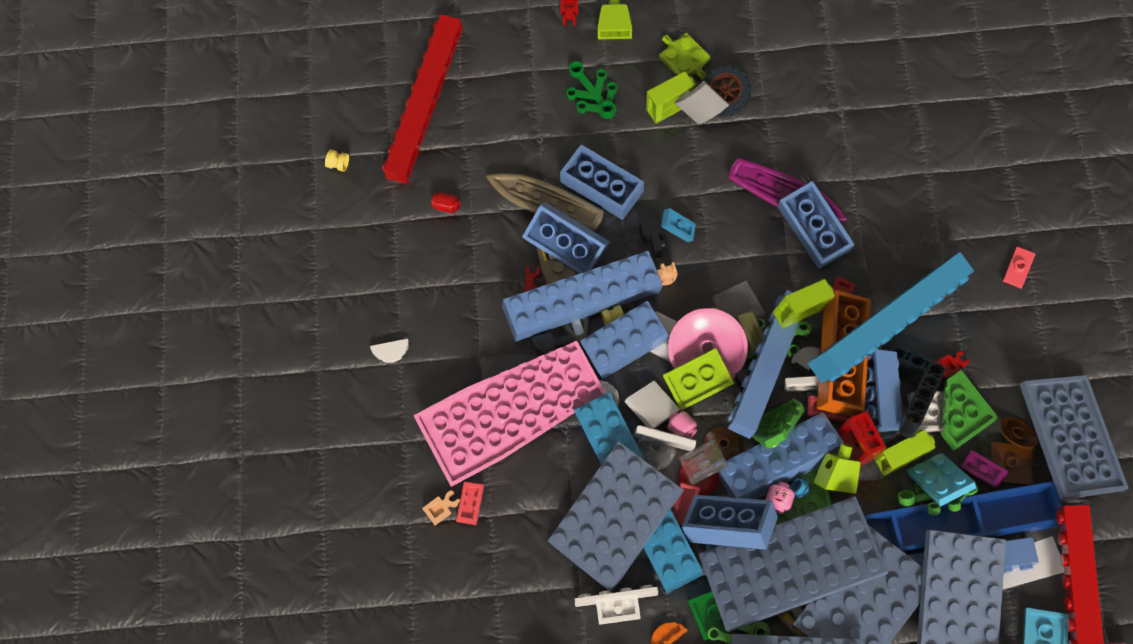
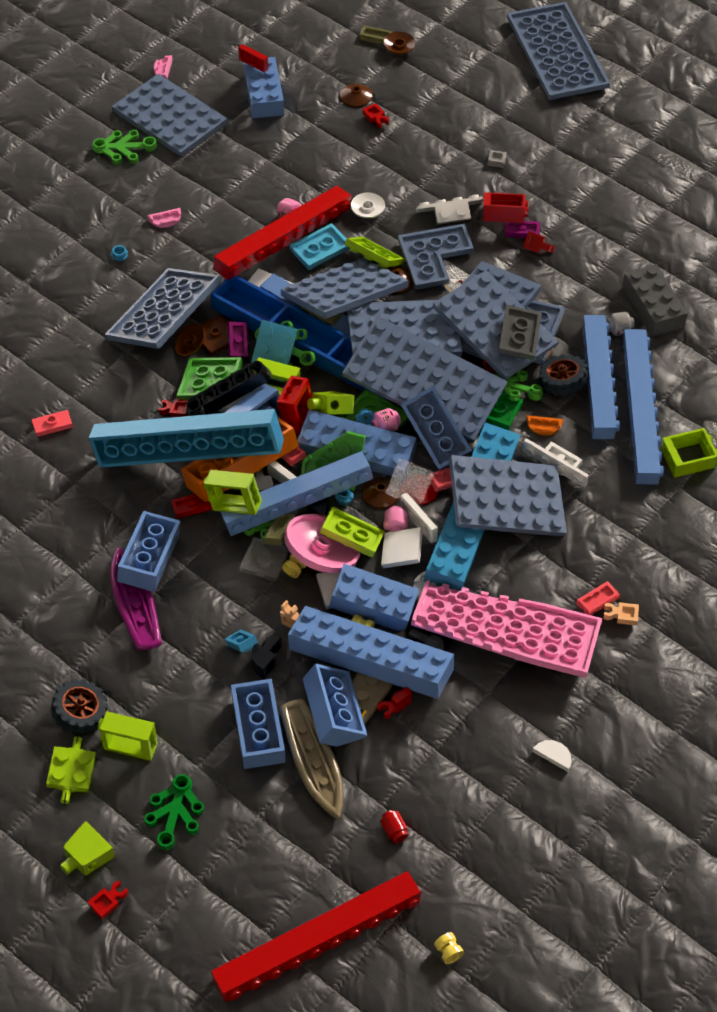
camera: 140 degrees left, 15 degrees down
(702, 103) = (110, 699): light grey slope -> none

